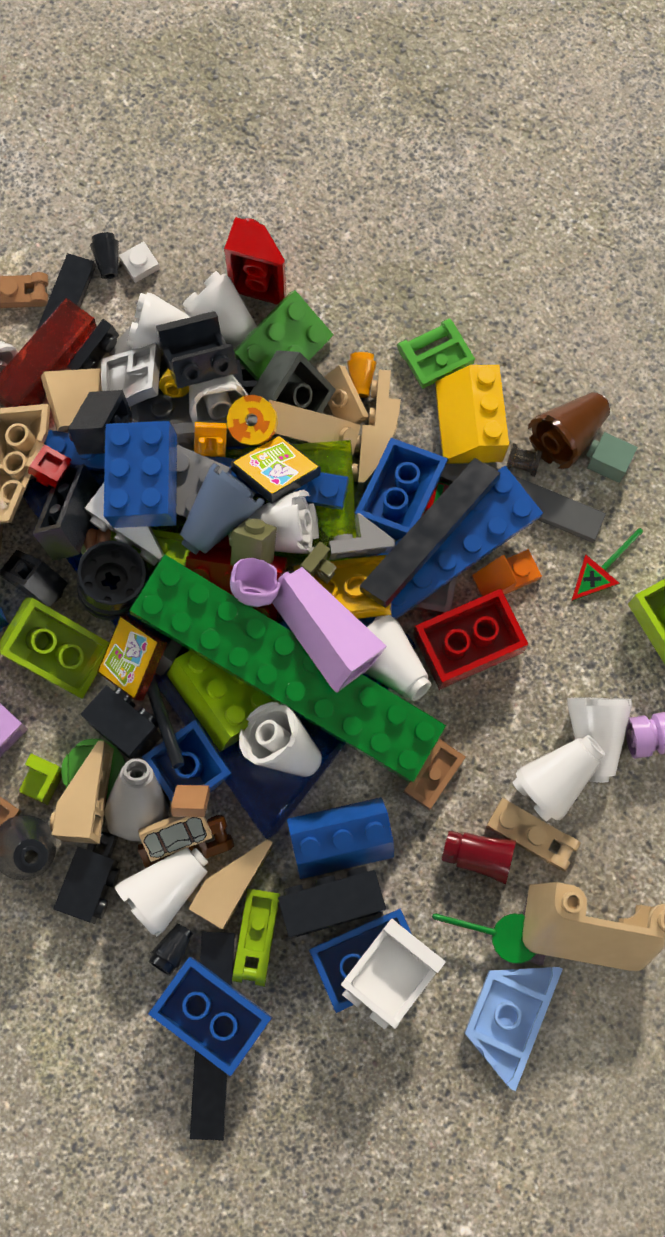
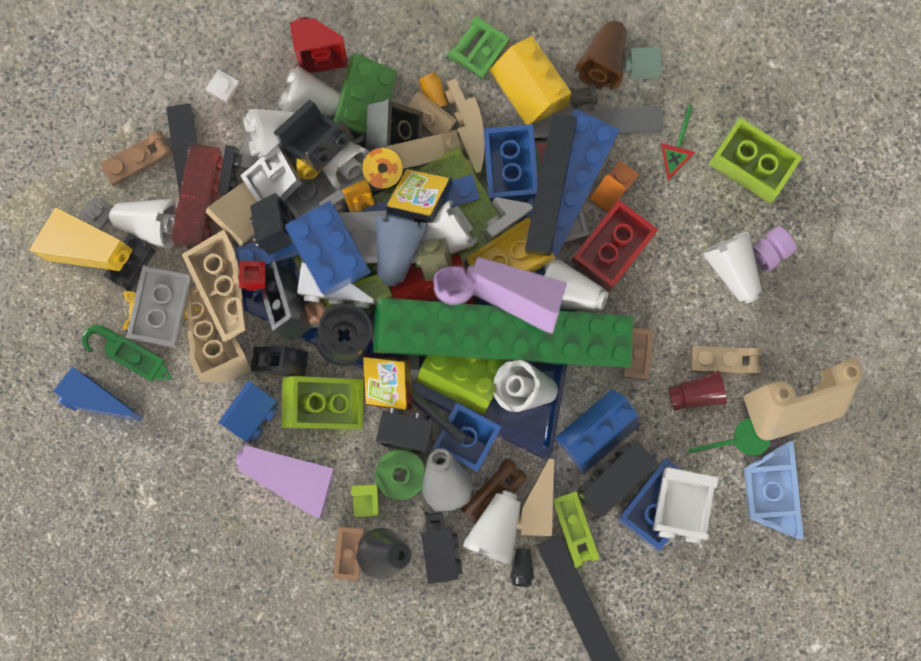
camera: 30 degrees left, 5 degrees up
(83, 803) = (409, 504): tan slope -> none
(106, 251) = (195, 93): black cone -> none
(173, 835) = (485, 488): tile -> none
(190, 801) = (485, 460): medium nougat tile -> none
(210, 1016) = (577, 597): blue brick -> none
(318, 565) = (486, 249): olive tile -> none
(559, 777) = (726, 311): white cone -> none

